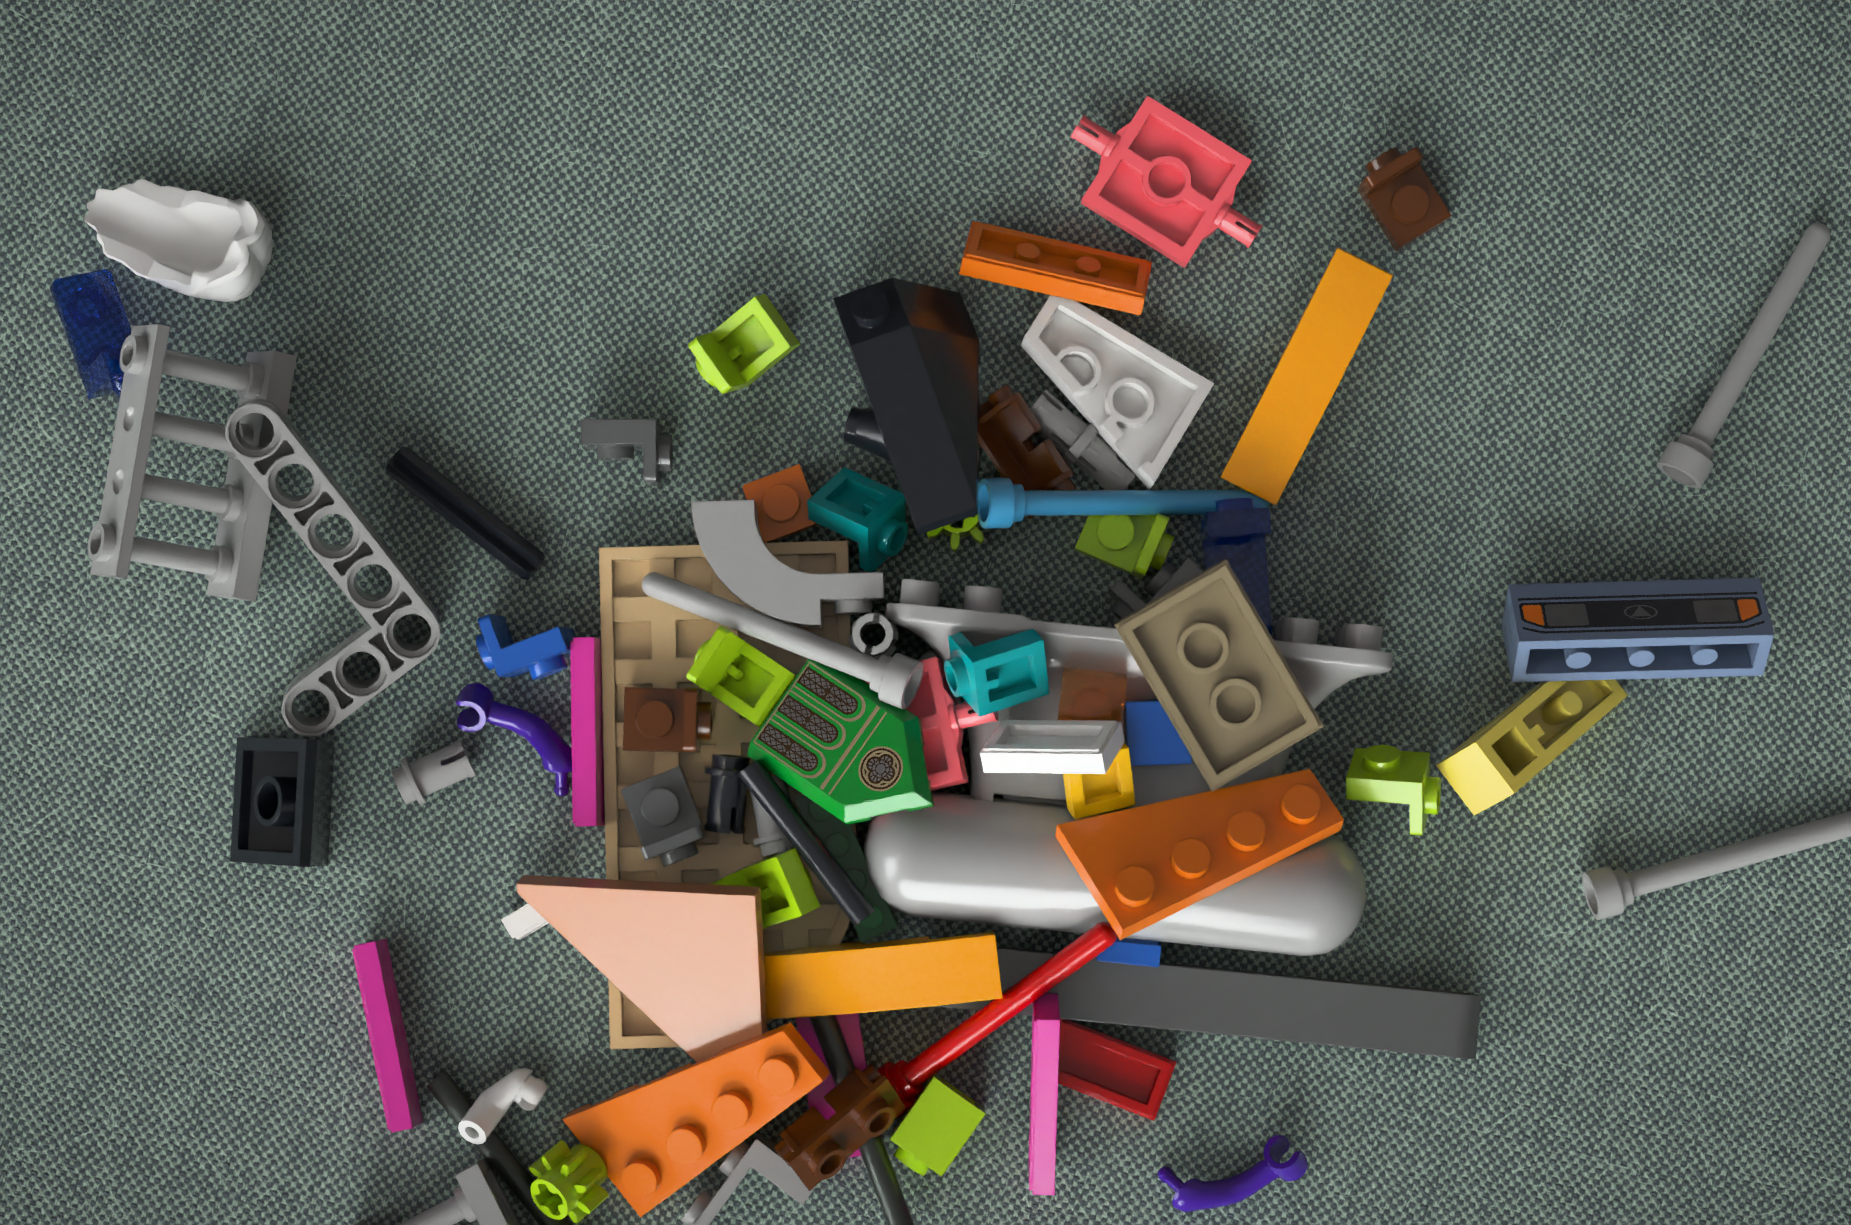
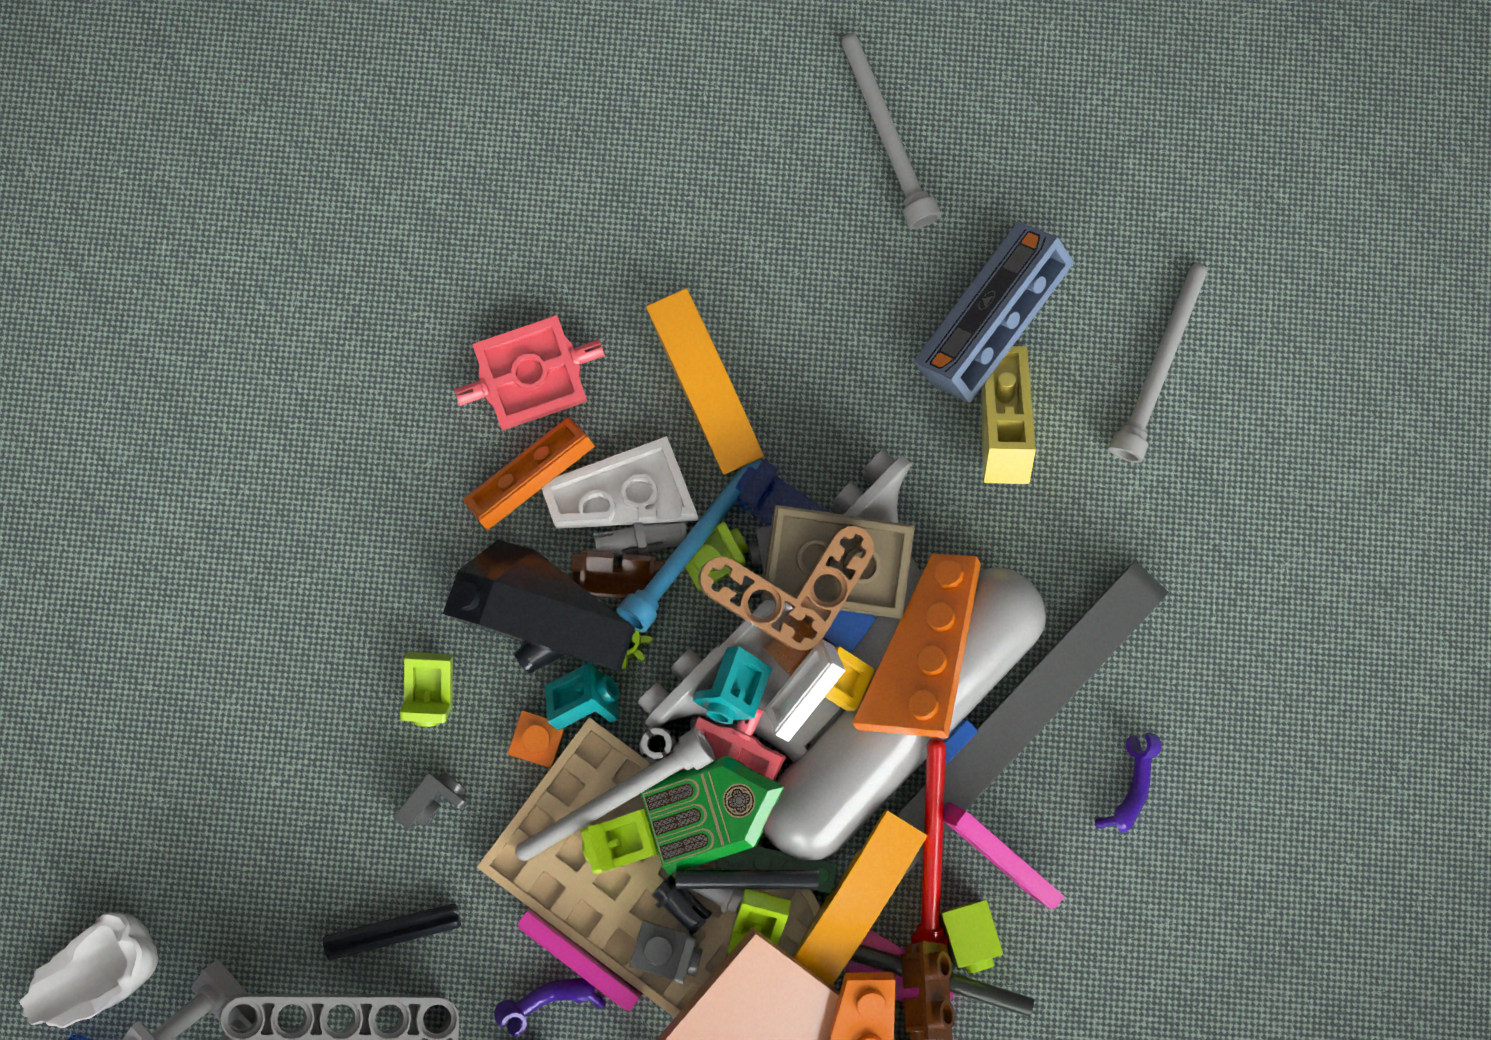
camera: 60 degrees left, 5 degrees down
(539, 654) = (510, 953): blue bracket -> none
(666, 720) = (609, 907): reddish brown bracket -> none
(737, 554) = (574, 784): light grey arch -> none
(1112, 1069) = (1017, 804): red tile -> none
(1146, 673) = (805, 601): none -> medium nougat beam
(1395, 776) = (973, 510): lime bracket -> none
(1402, 197) = (645, 249): reddish brown bracket -> none

